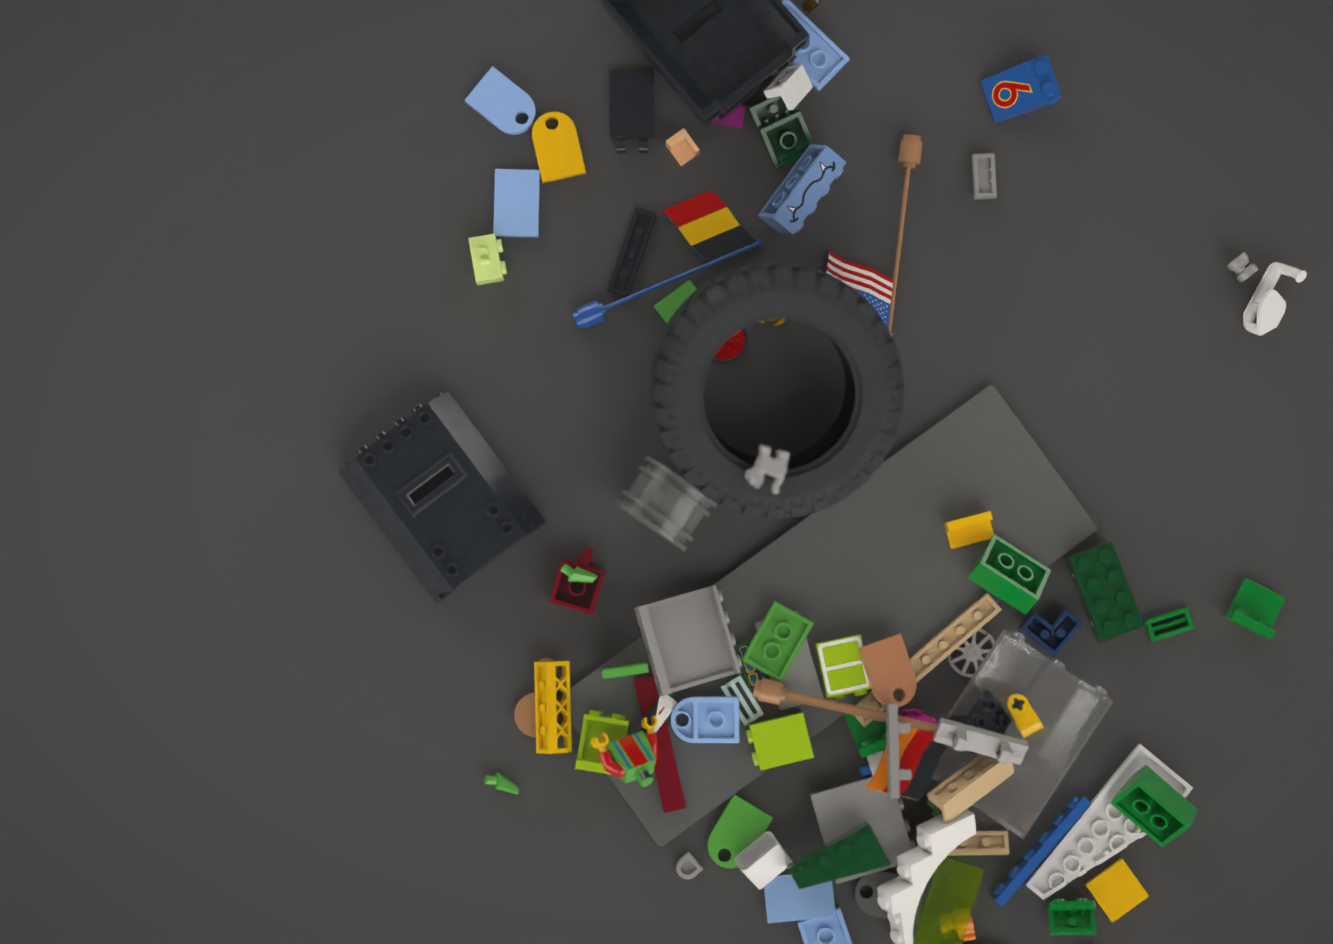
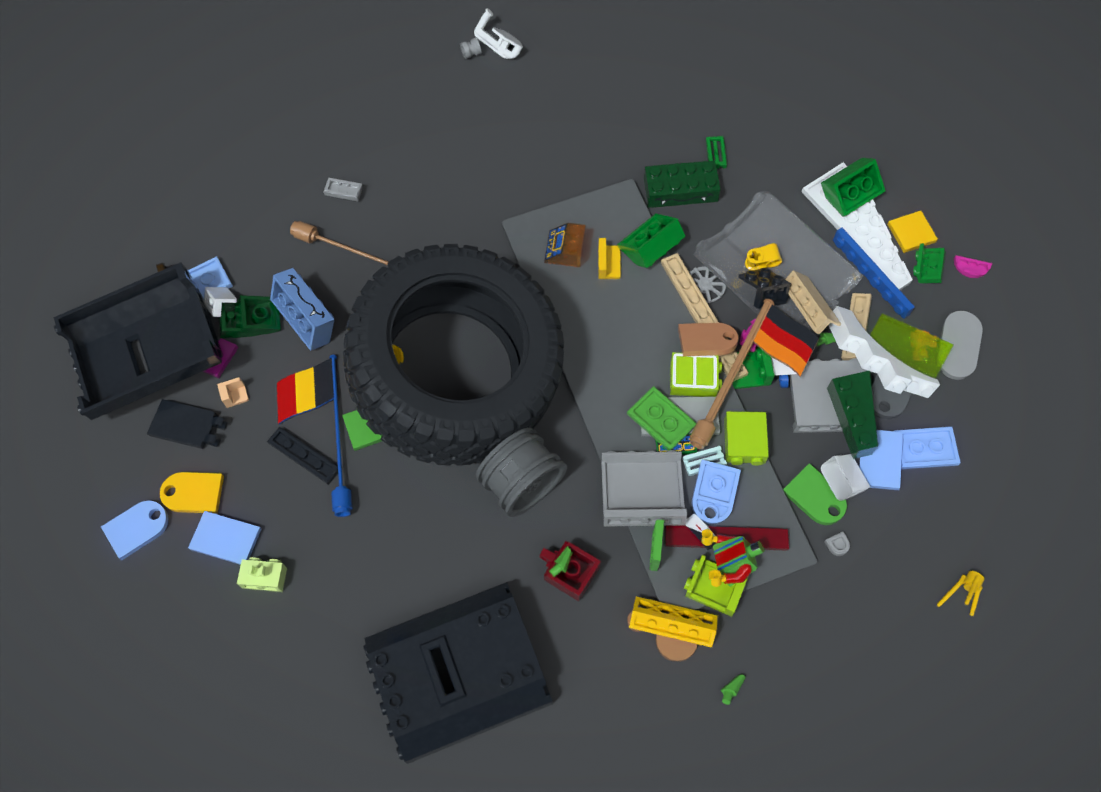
camera: 70 degrees left, 20 degrees down
(765, 464) = (516, 357): light grey animal -> none
(894, 728) = (773, 345): light grey hinge -> none
(974, 472) = (565, 245): none -> clear orange slope
(980, 741) = (779, 284): light grey hinge -> none
(1021, 89) = (289, 149): blue slope -> none
(1054, 636) = (706, 225): dark blue brick -> none
(1255, 608) = (719, 96): green bracket -> none

